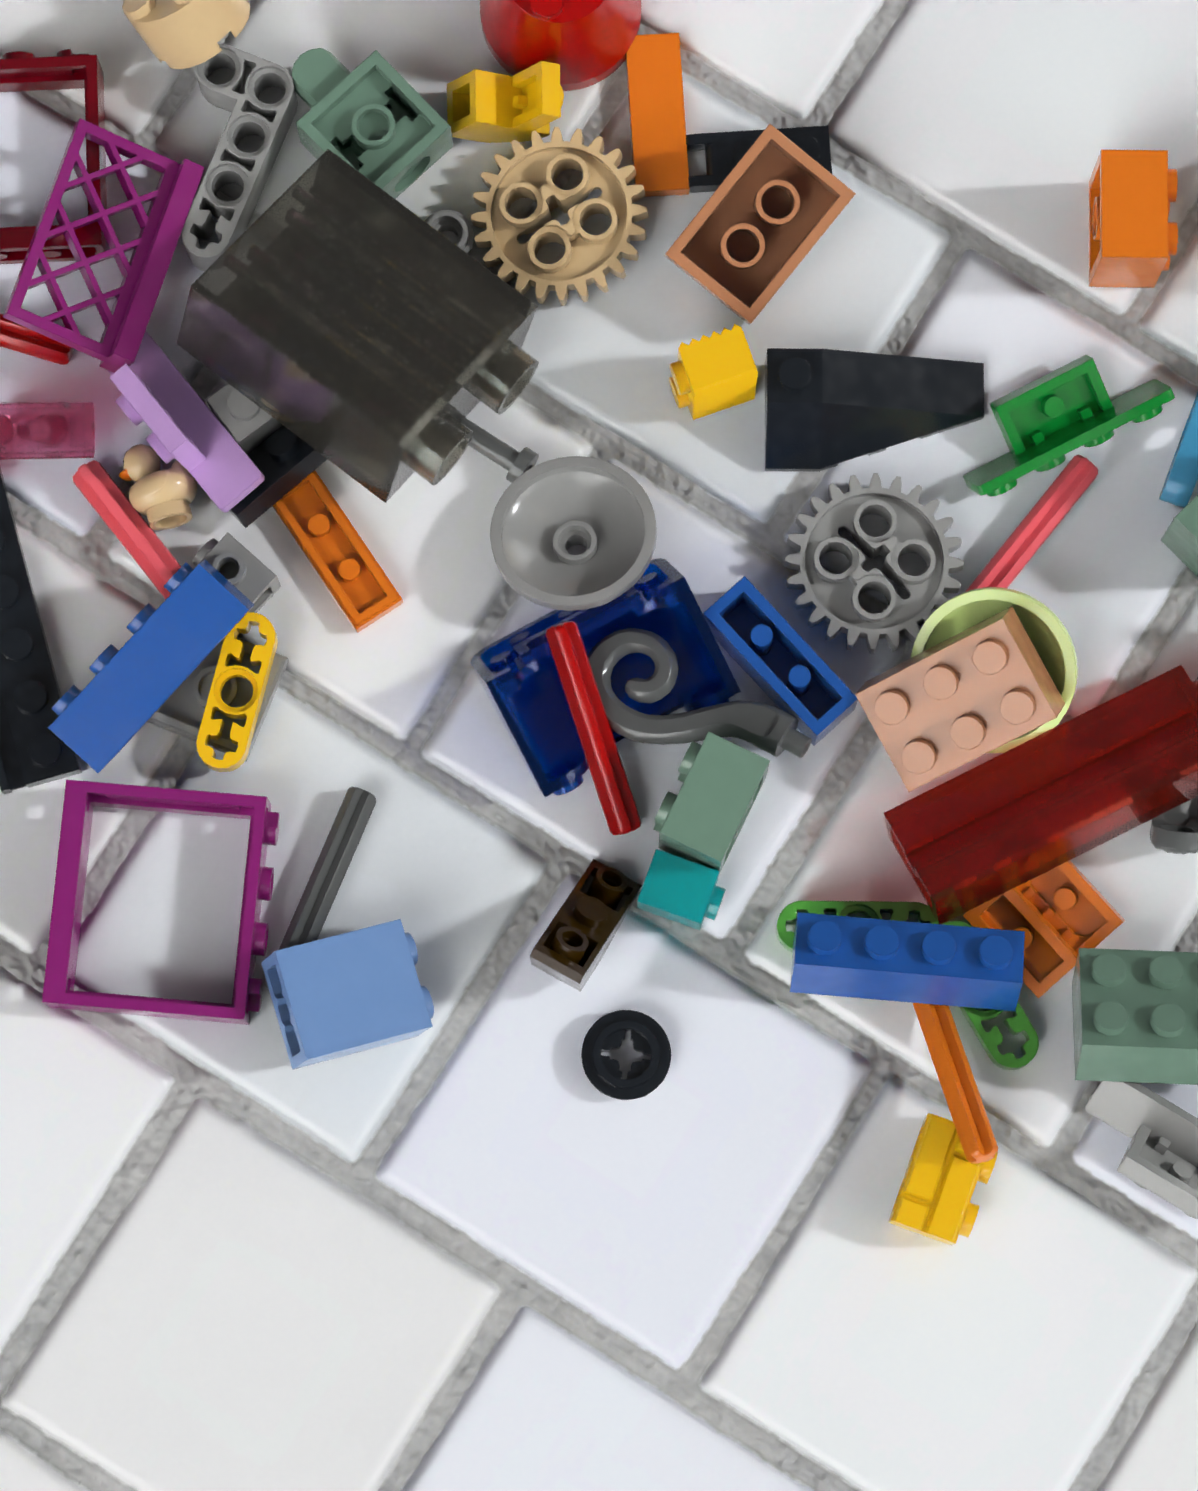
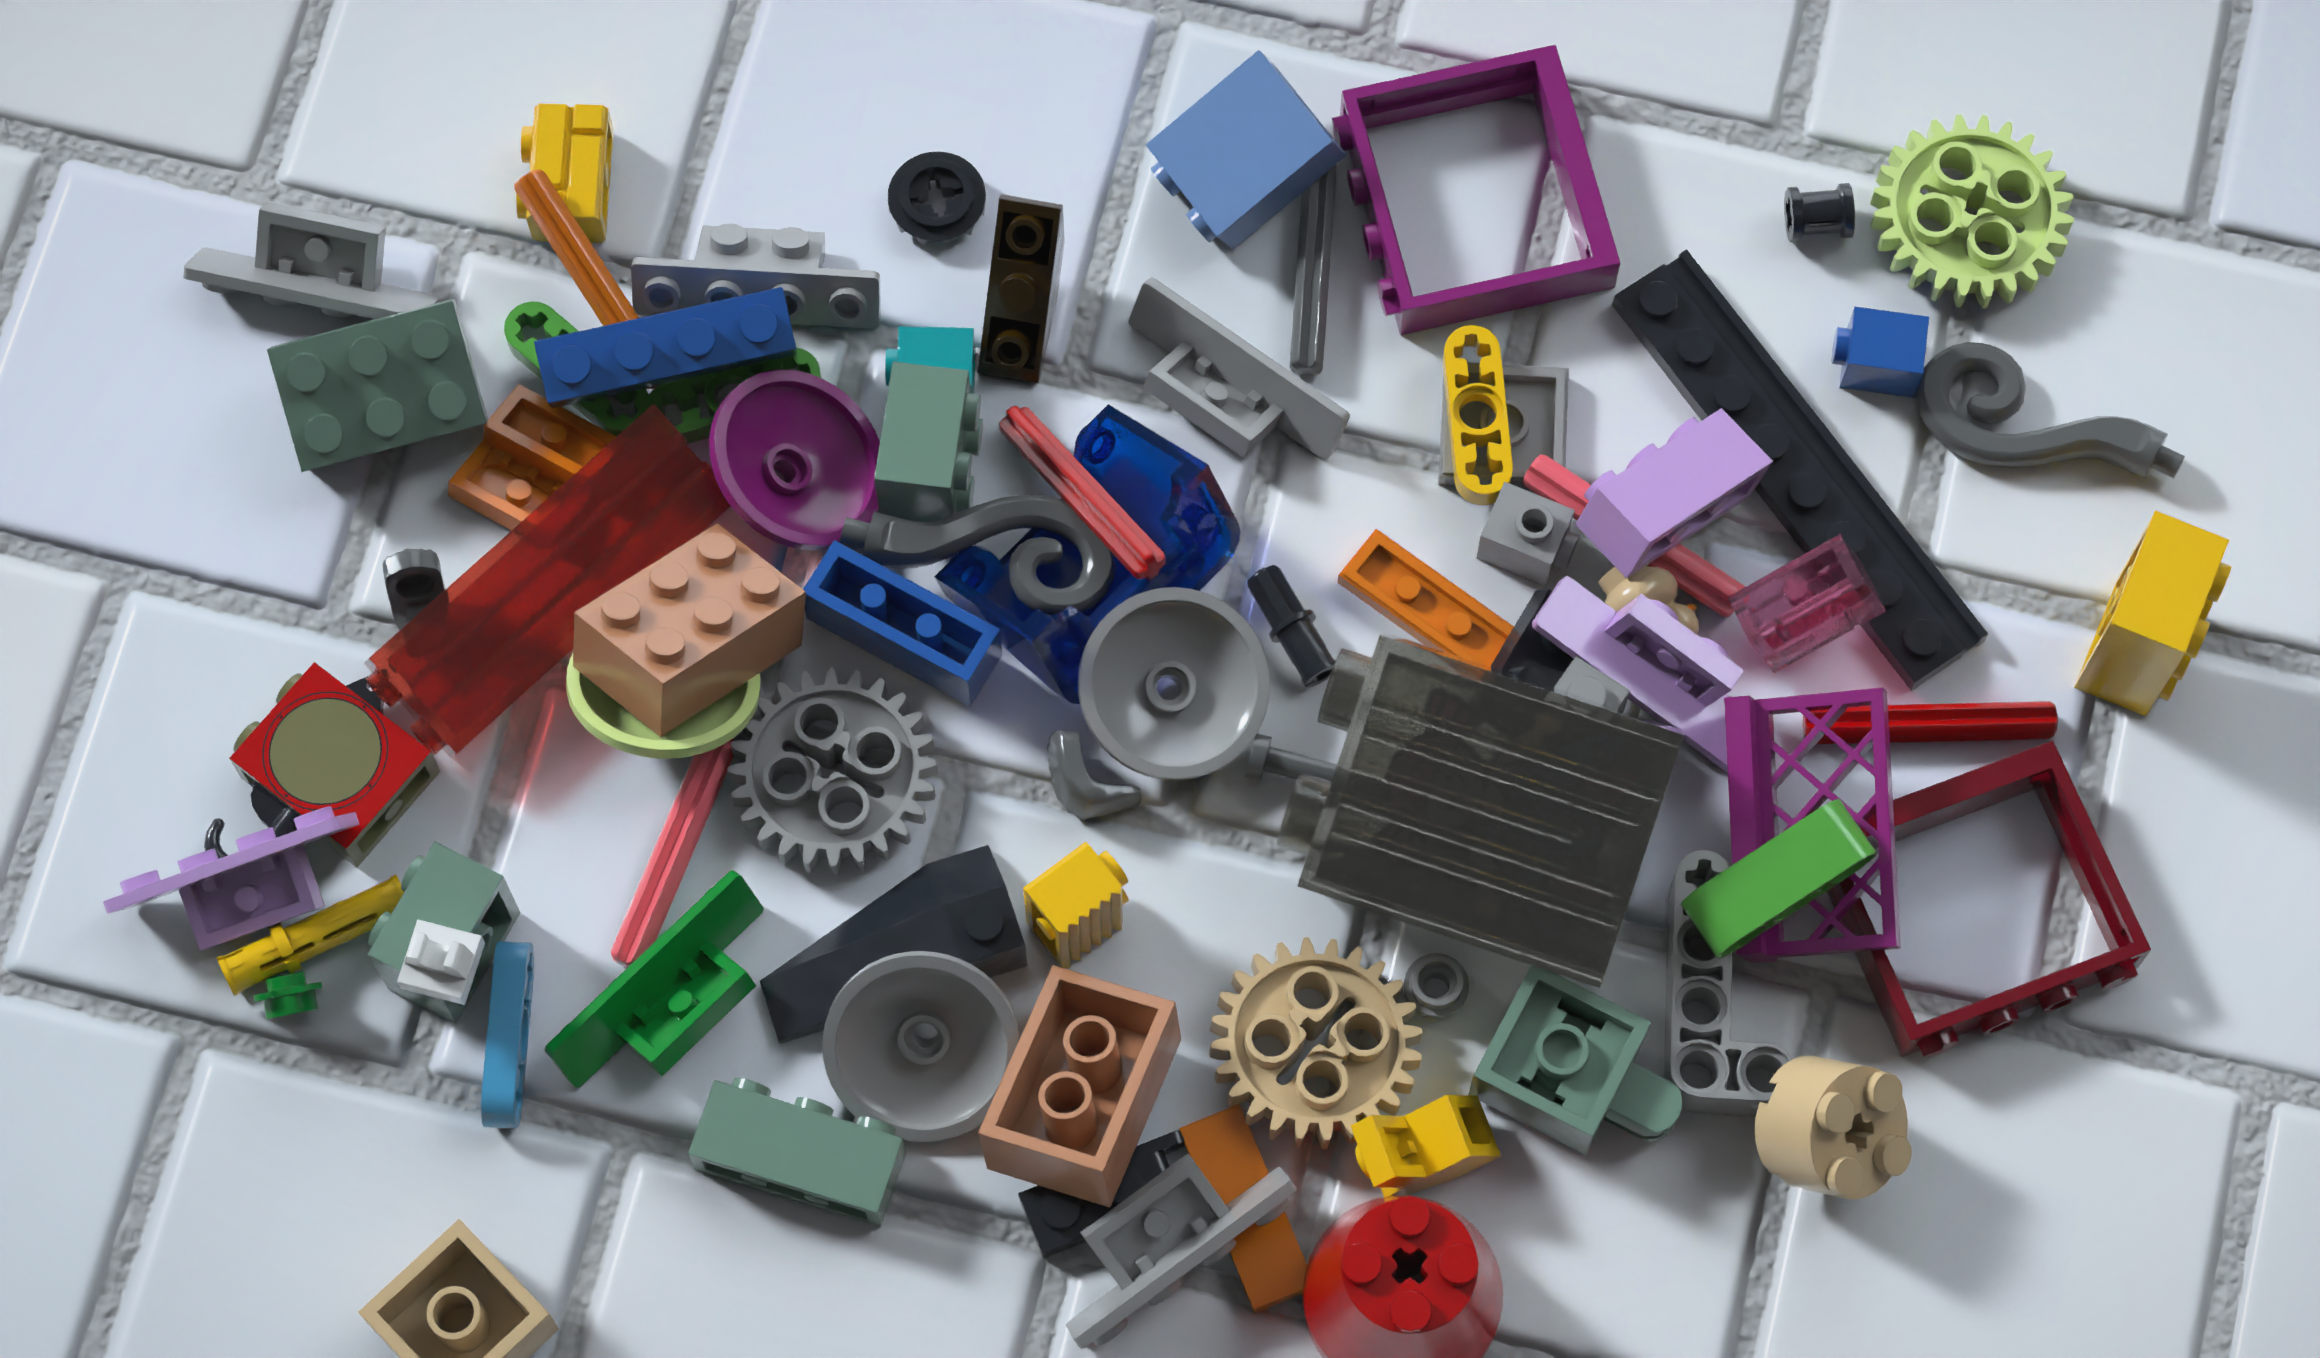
camera: 160 degrees right, 10 degrees down
(103, 561) = (1671, 491): none -> lavender brick
(150, 665) = (1576, 395): blue brick -> none
(151, 194) = (1778, 878): none -> bright green beam
(439, 793) = (1227, 381): none -> light grey bracket
(455, 568) = (1291, 625): none -> black axle
(682, 491) = (1075, 786): none -> dark grey hair
(727, 94) = (1164, 1235): none -> light grey bracket
(798, 822) = (813, 440): none -> magenta dish
(802, 1031) = (752, 260): none -> light grey bracket
(874, 300) = (915, 1083): none -> light grey dish
(994, 261) = (798, 1150): none -> sand green brick
(1130, 218) = (654, 1233): orange brick -> none

